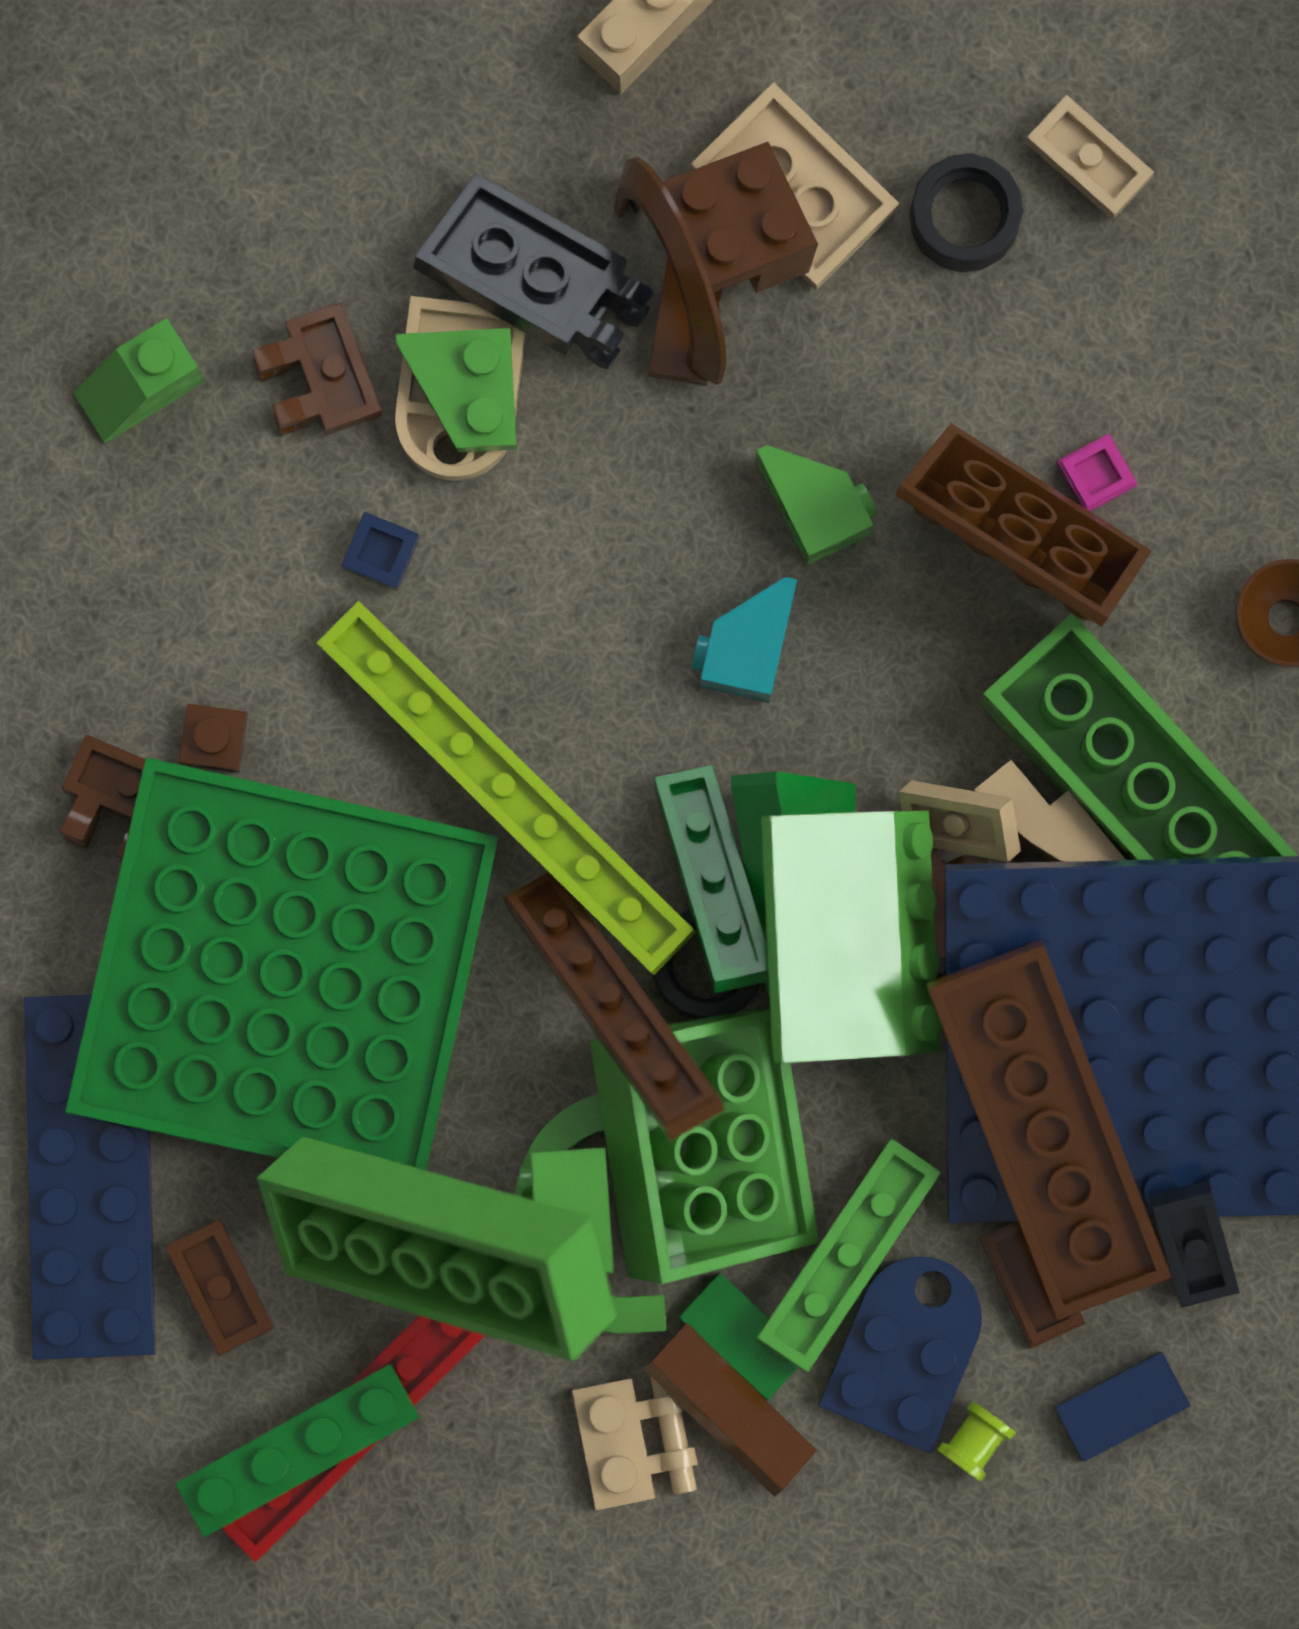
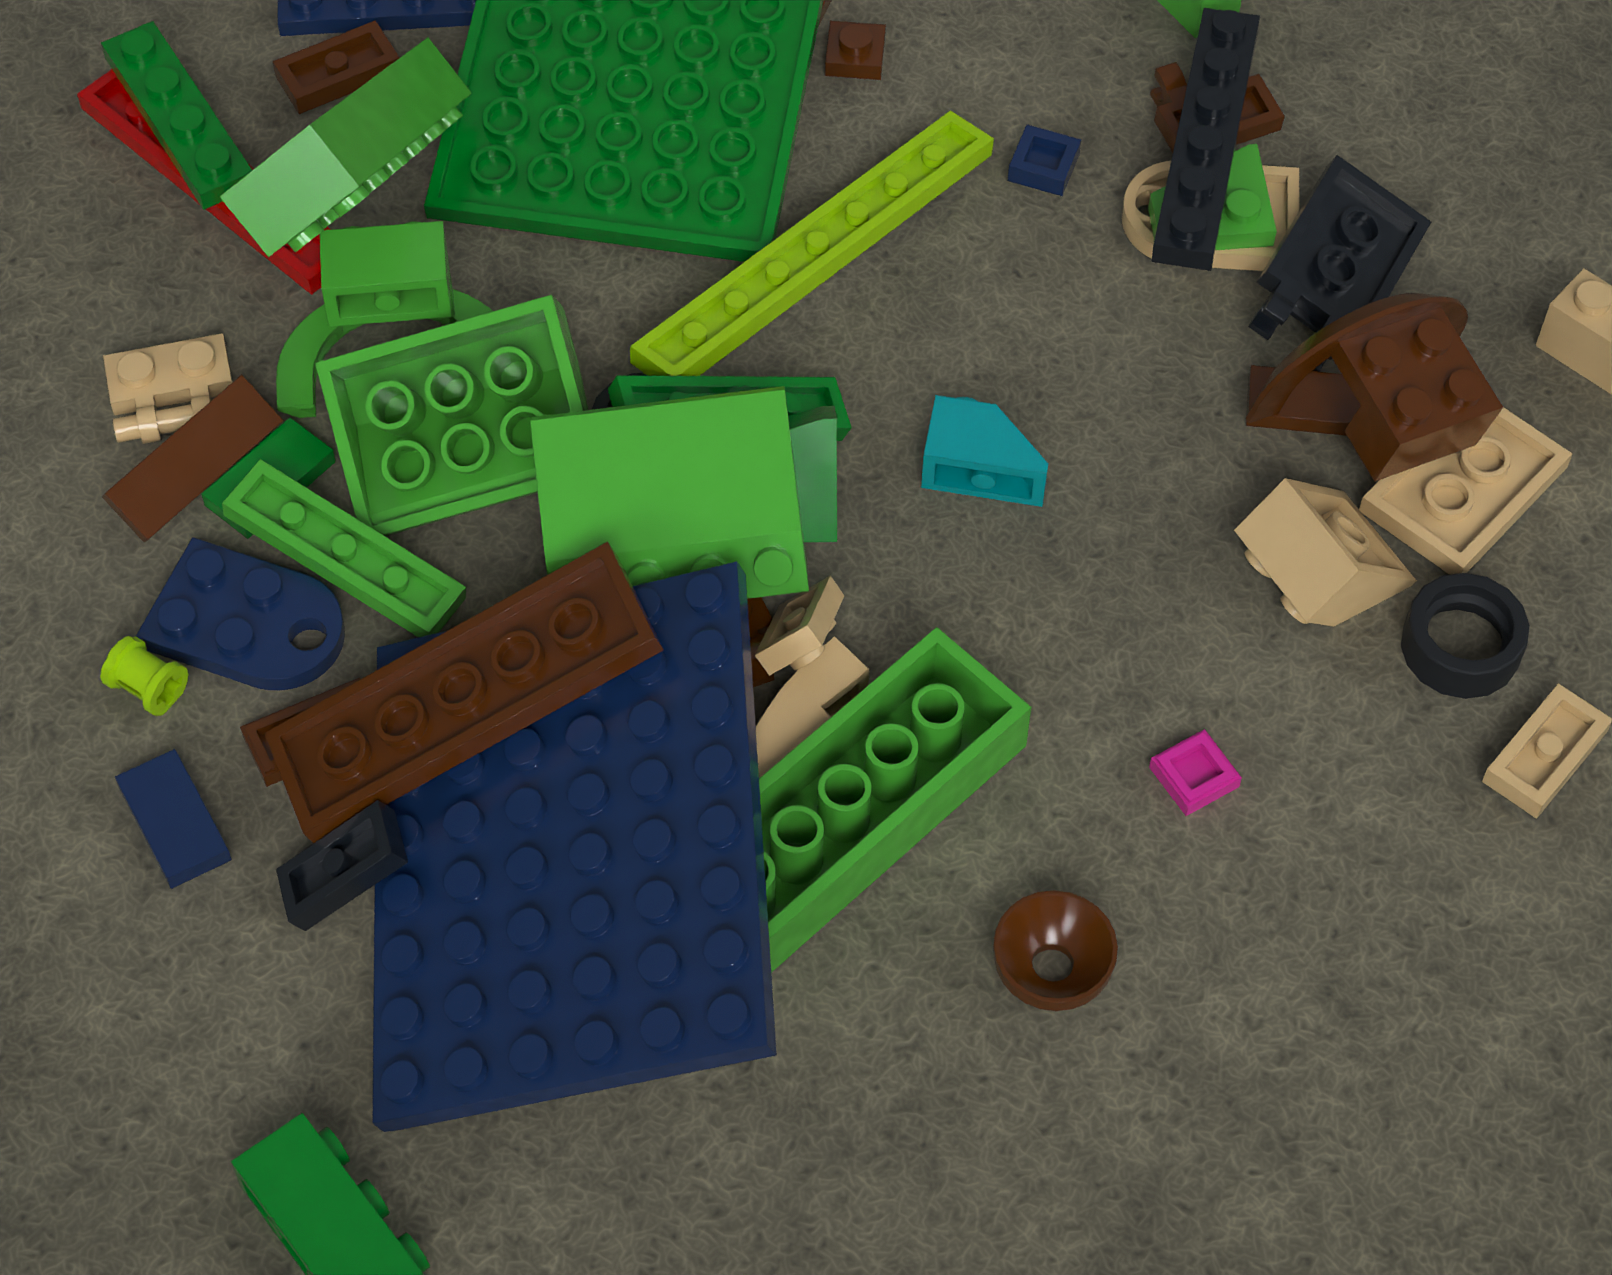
camera: 85 degrees right, 25 degrees down
(396, 383) = (1206, 140): none -> black plate
(614, 1006) = (574, 294): reddish brown tile -> none
(816, 502) = (1127, 504): bright green slope -> none
(876, 328) = (1321, 553): none -> tan slope
(1023, 524) = (1113, 655): reddish brown slope -> none

